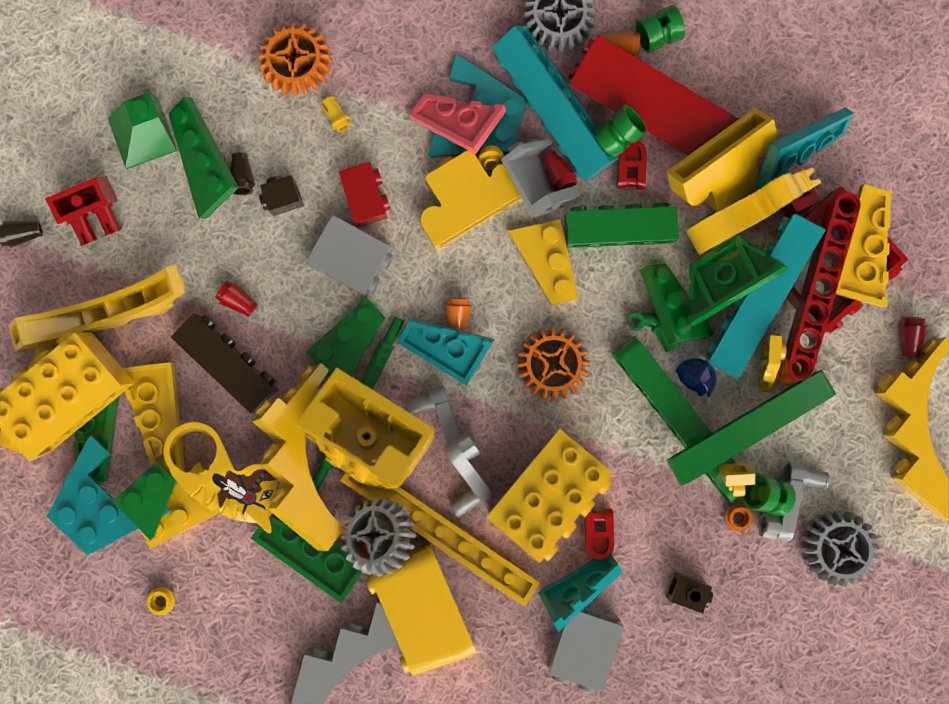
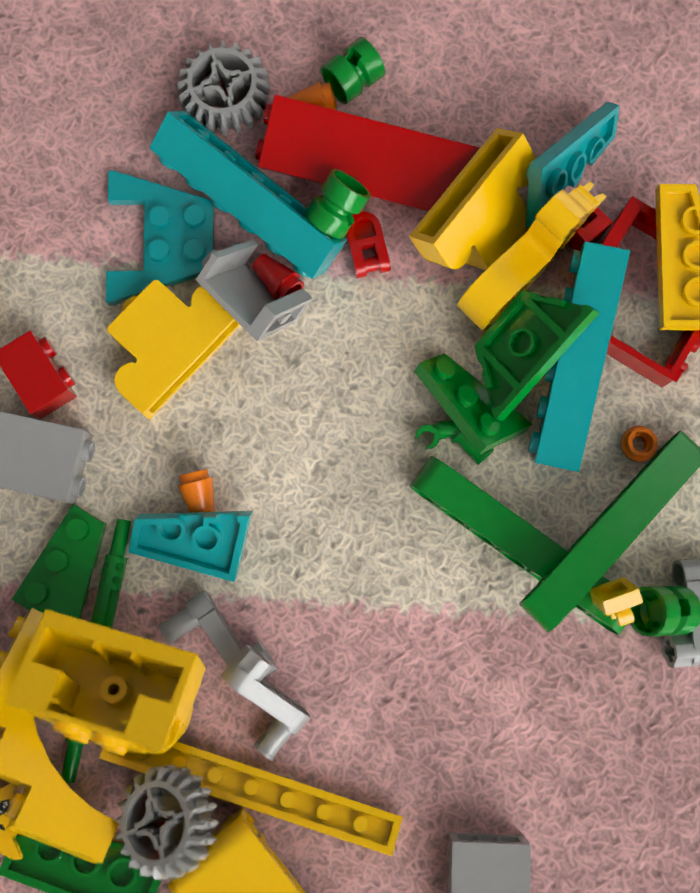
camera: 20 degrees left, 5 degrees down
(457, 121) = (130, 250): coral wing -> none
(490, 157) = (181, 280): yellow plate -> none
(547, 256) = (294, 389): yellow wing -> none
(551, 496) = (381, 700): yellow brick -> none
(566, 343) = (348, 490): orange gear -> none
(577, 589) = (455, 810): teal wing -> none
(599, 543) = (466, 738): red plate -> none
(621, 226) = (375, 322): green brick -> none
(689, 592) = (603, 770): dark brown brick -> none
(697, 375) = (527, 483): clear blue hair -> none
(747, 517) = (646, 651): orange plate -> none
(771, 355) = (612, 430): yellow wing -> none
(830, 277) = (638, 342): red beam -> none

